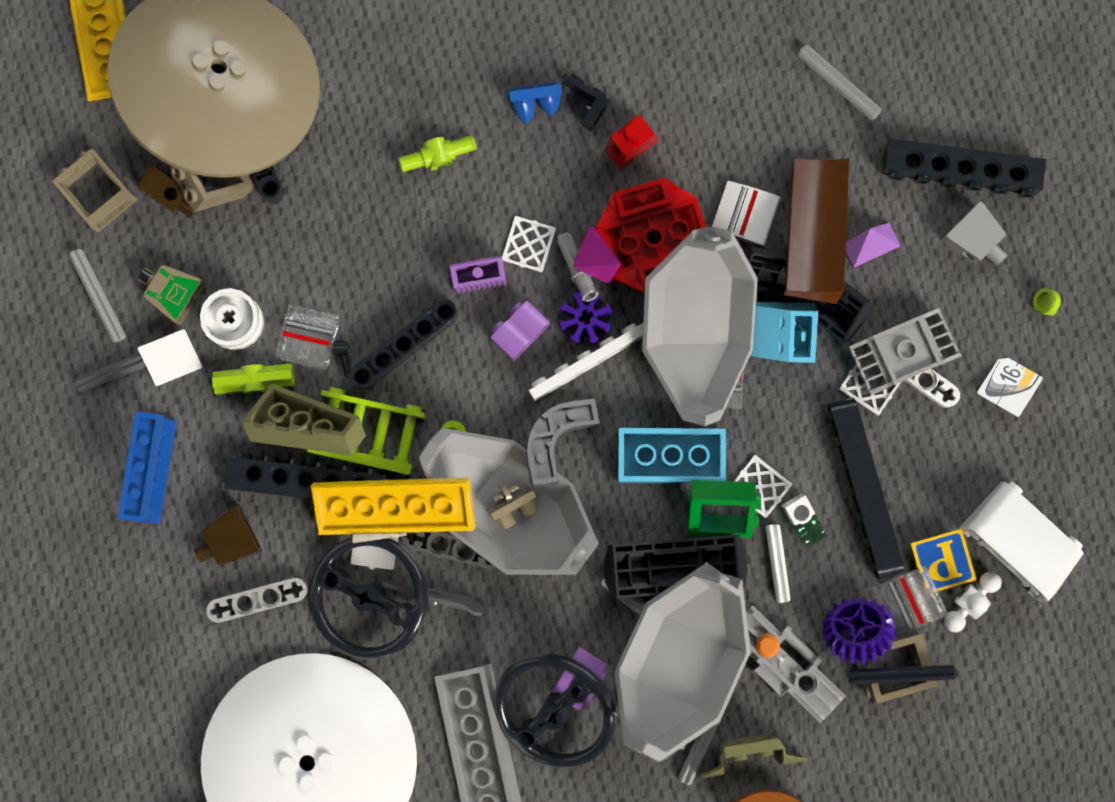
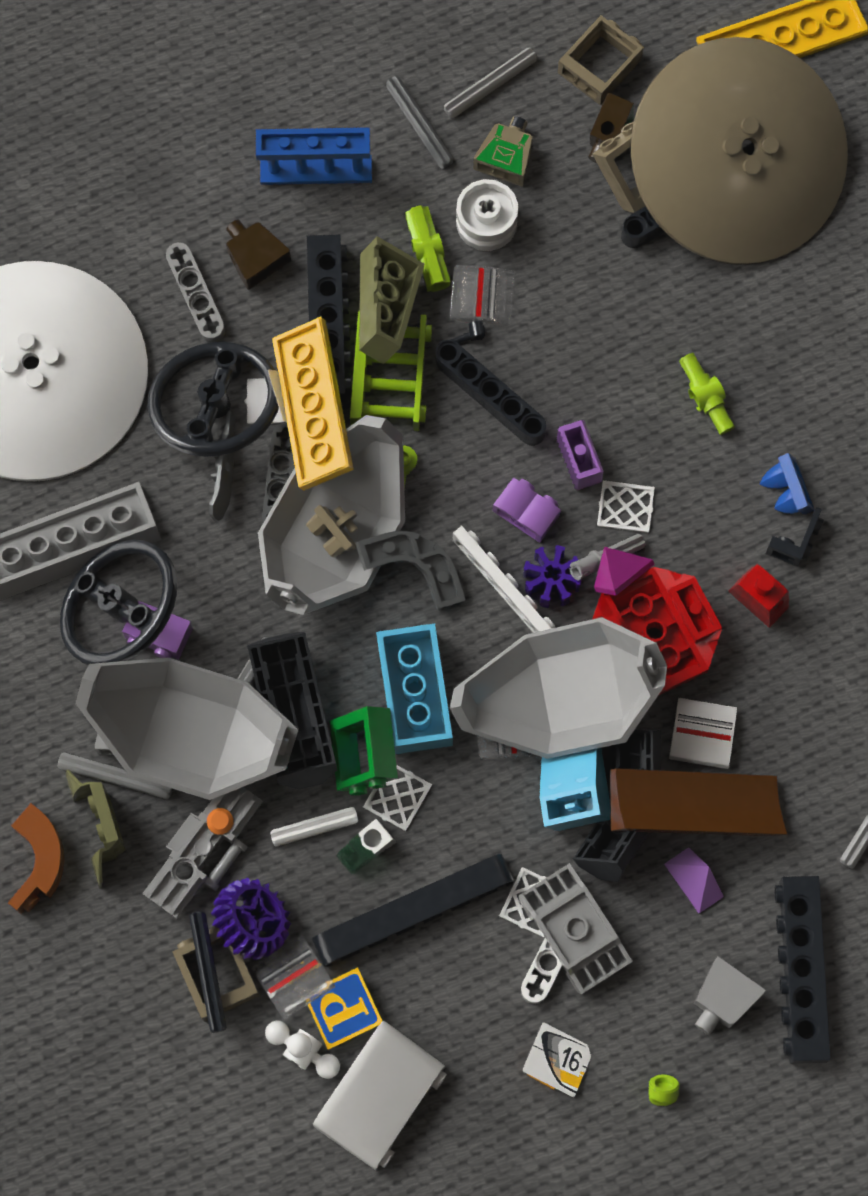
camera: 75 degrees right, 10 degrees down
(170, 357) = (436, 163): white sticker -> none

